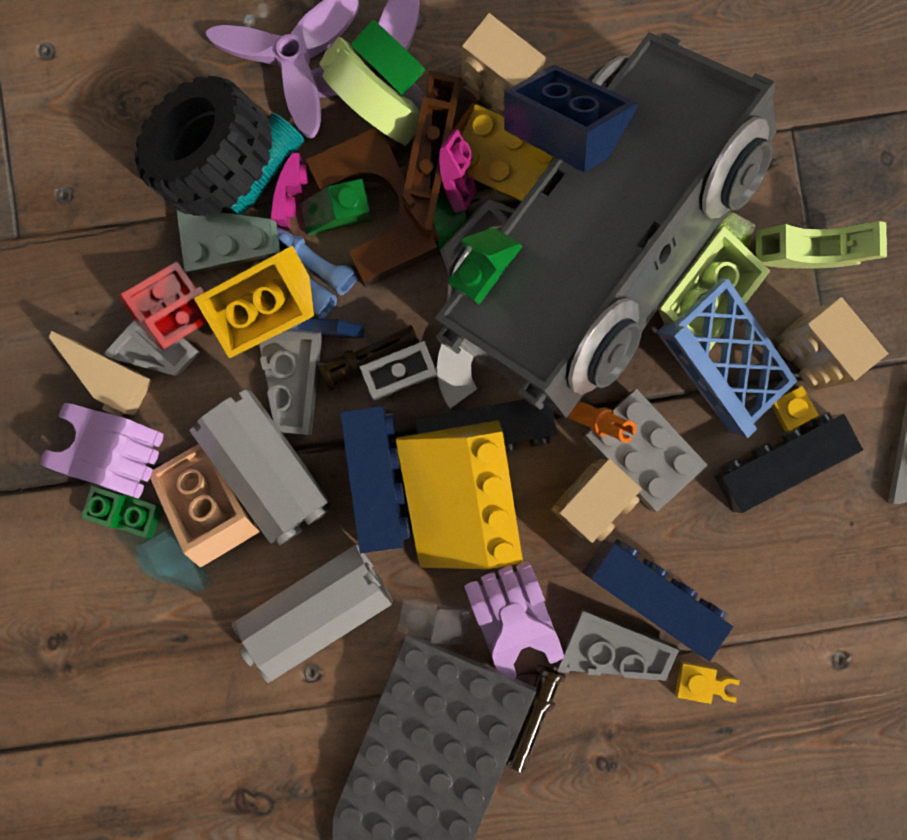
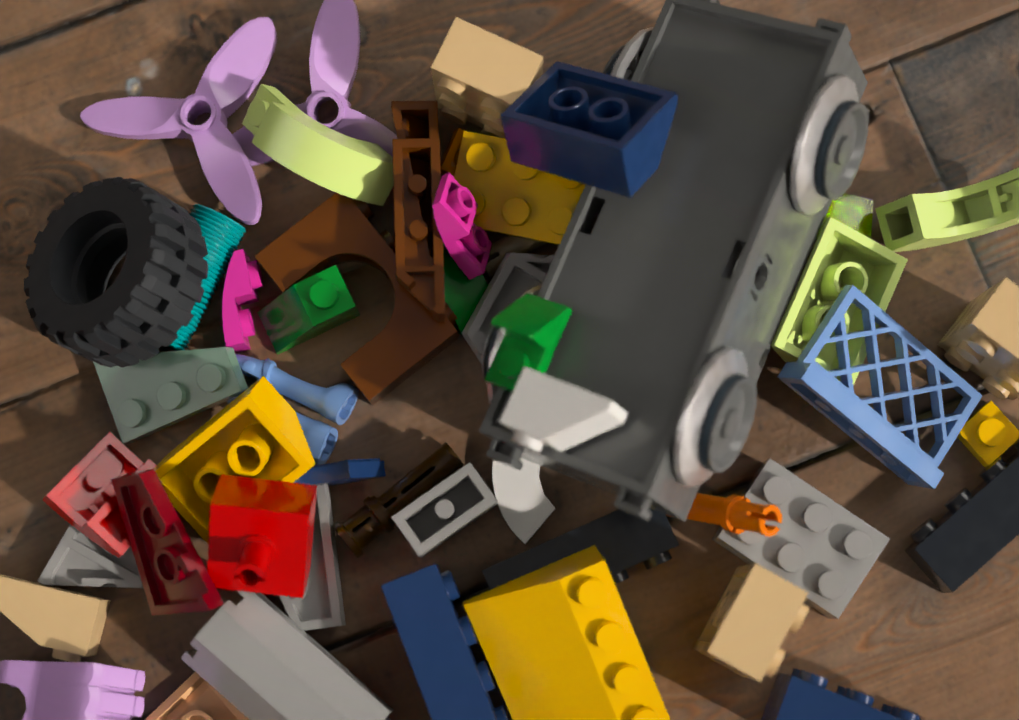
camera: 10 degrees left, 5 degrees down
(193, 350) = (162, 549): none -> dark red wing
(264, 357) = (261, 535): none -> red brick
(388, 57) = (333, 97): green slope -> none
(493, 316) = (556, 413): none -> white slope

